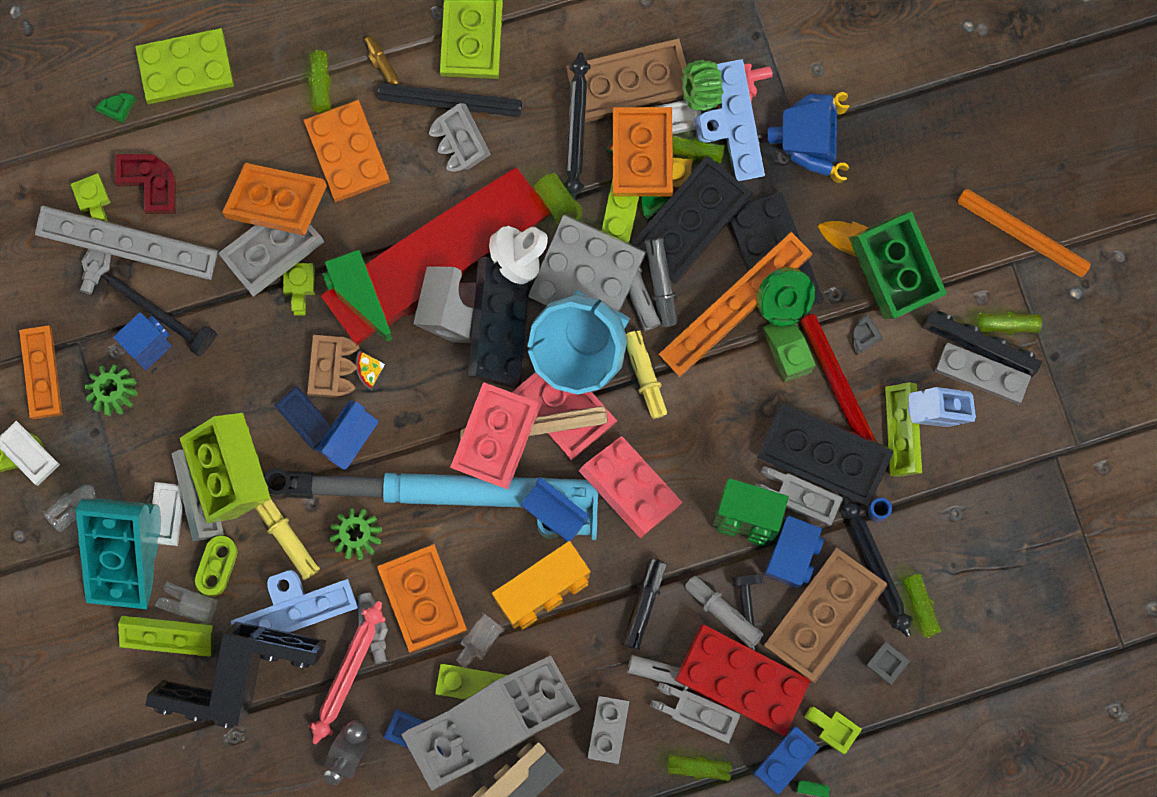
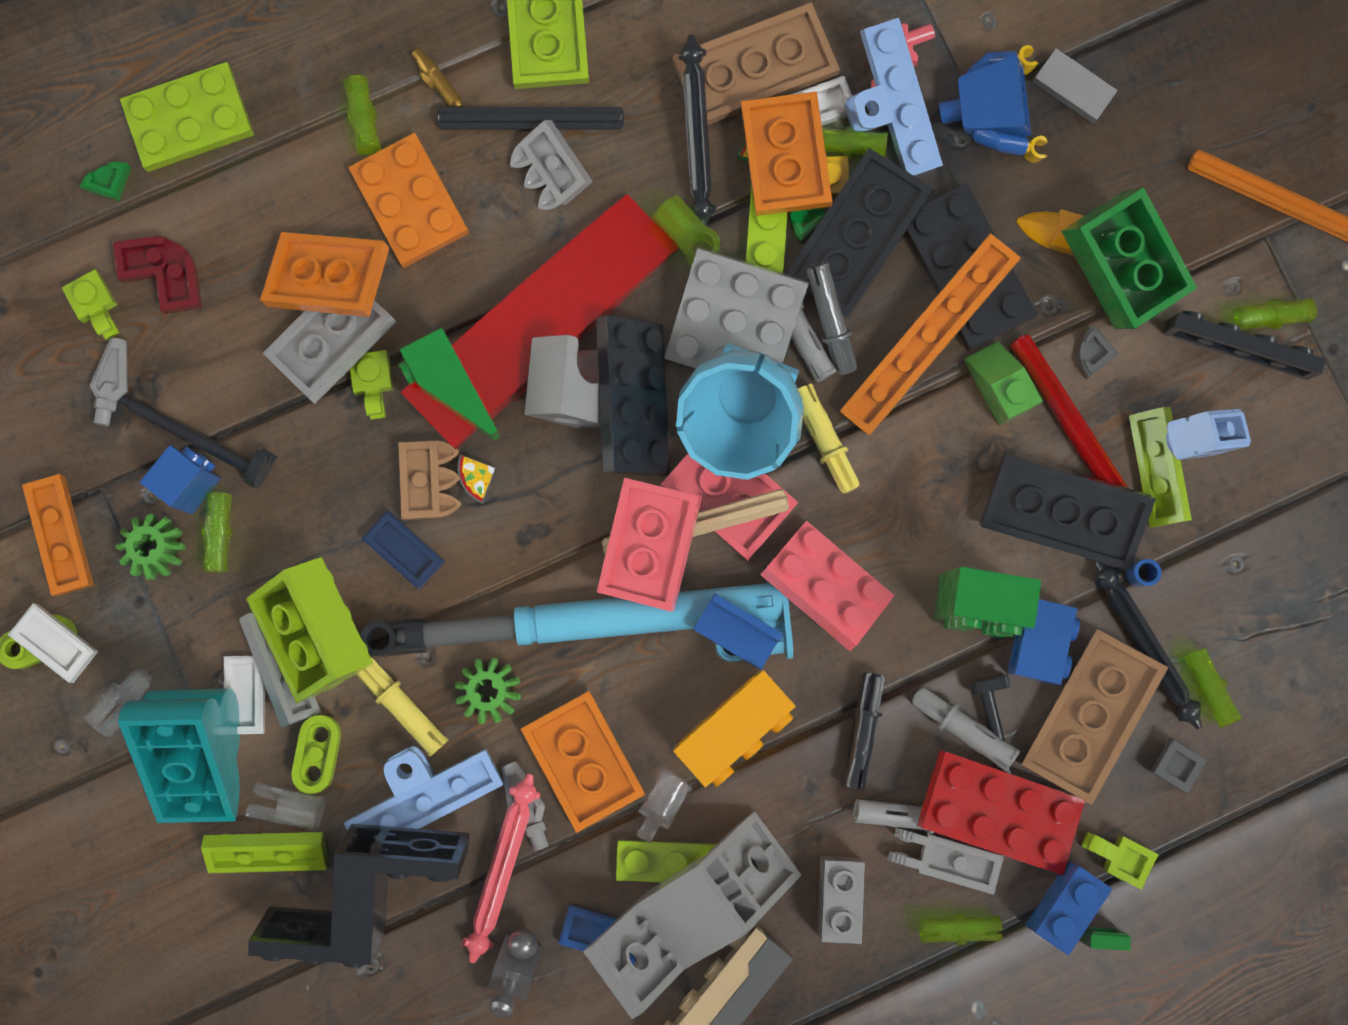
camera: 10 degrees left, 5 degrees up
(126, 242) = (142, 354): light grey tile -> none
(163, 386) = (216, 532): none -> clear neon green pin
(347, 435) = (459, 565): blue panel -> none
(517, 253) = (644, 305): white tile -> none
(702, 85) = (852, 58): bright green gear -> none
(785, 296) = (992, 317): green tile -> none
(805, 497) = (1058, 572): light grey hinge -> none
(877, 127) = (1074, 86): none -> light grey tile
(982, 373) = (1248, 382): light grey plate -> none

